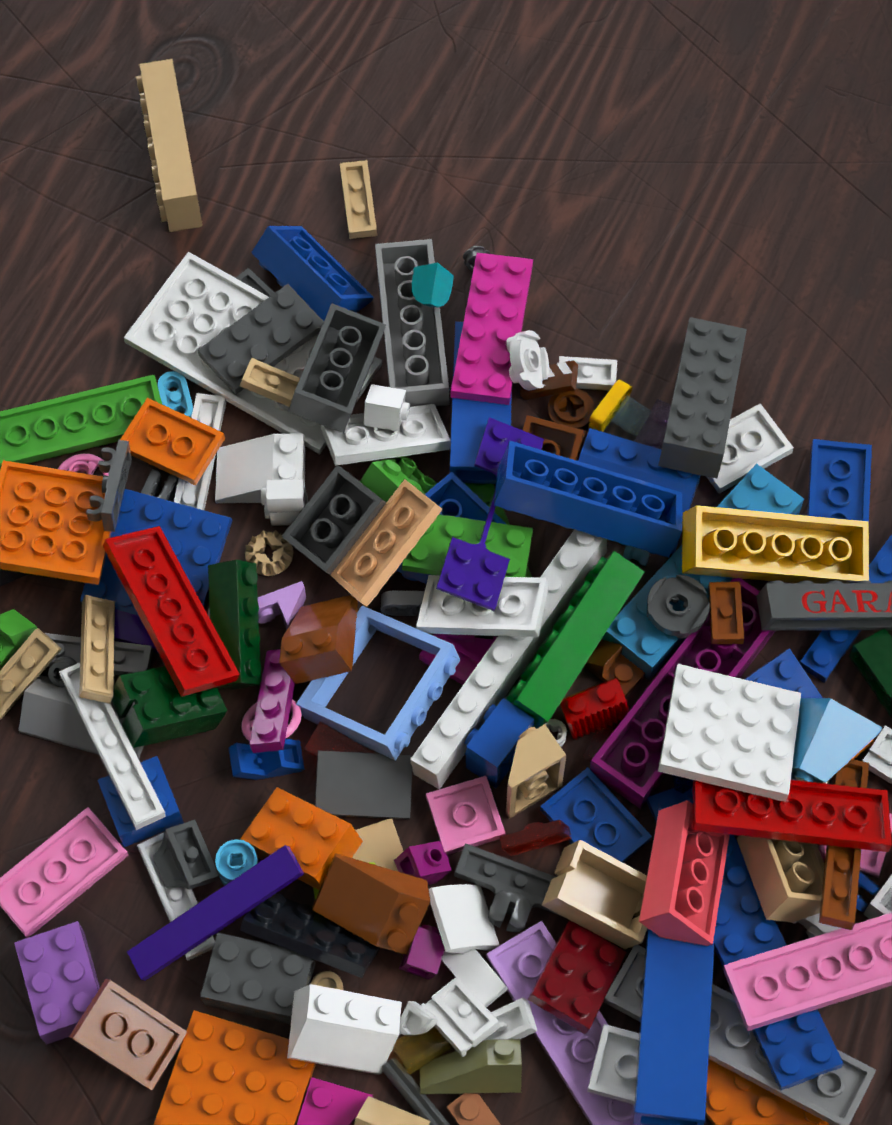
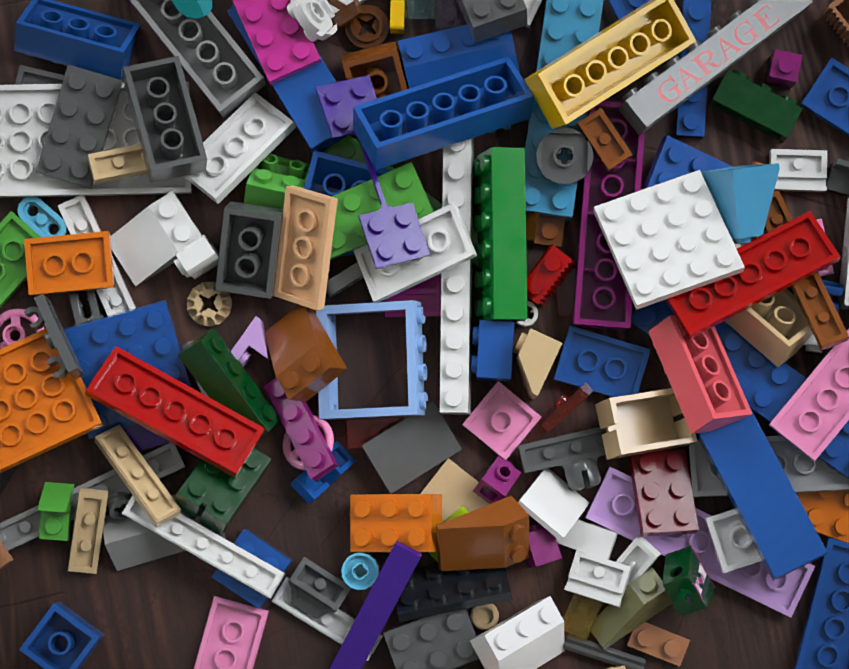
camera: 30 degrees left, 20 degrees up
(385, 407) = (224, 127): white brick -> none
(416, 1020) = (569, 601): white tile -> none
(545, 1073) = (687, 581): none -> dark green torso

